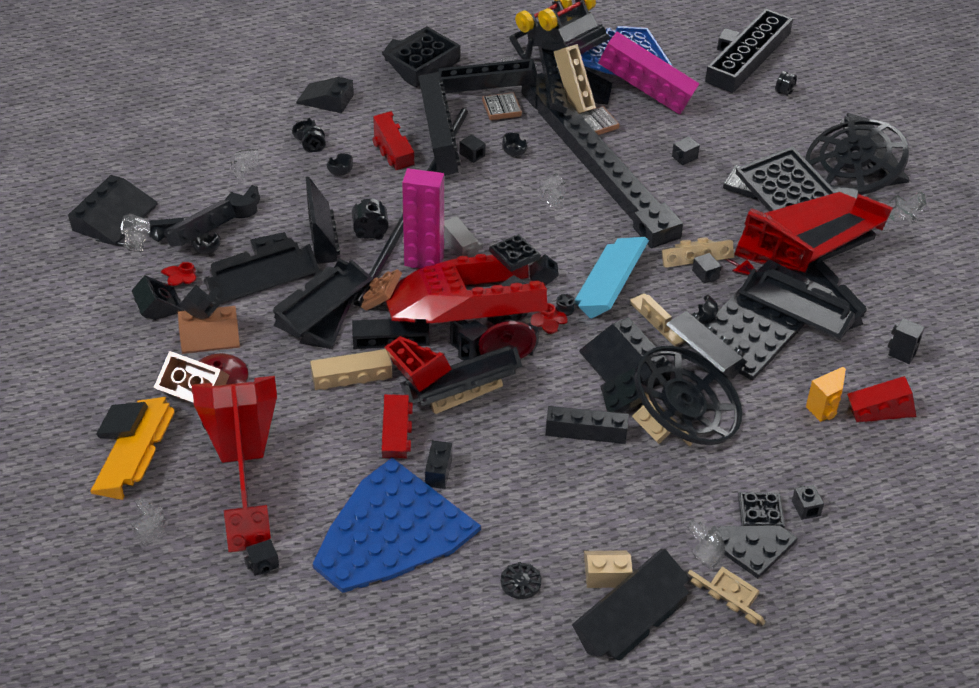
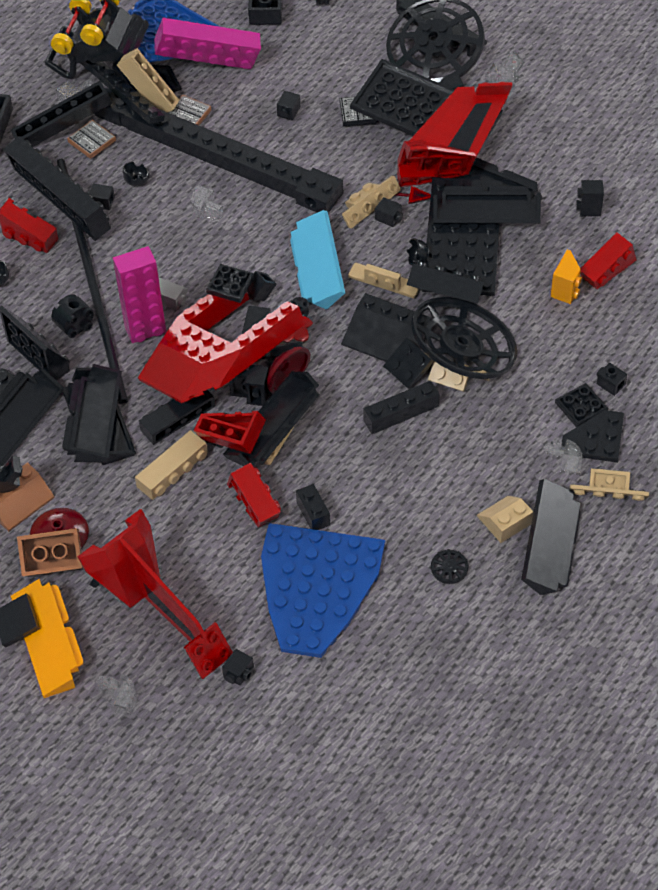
camera: 30 degrees left, 10 degrees up
(381, 289) = (139, 378): nougat tile -> none

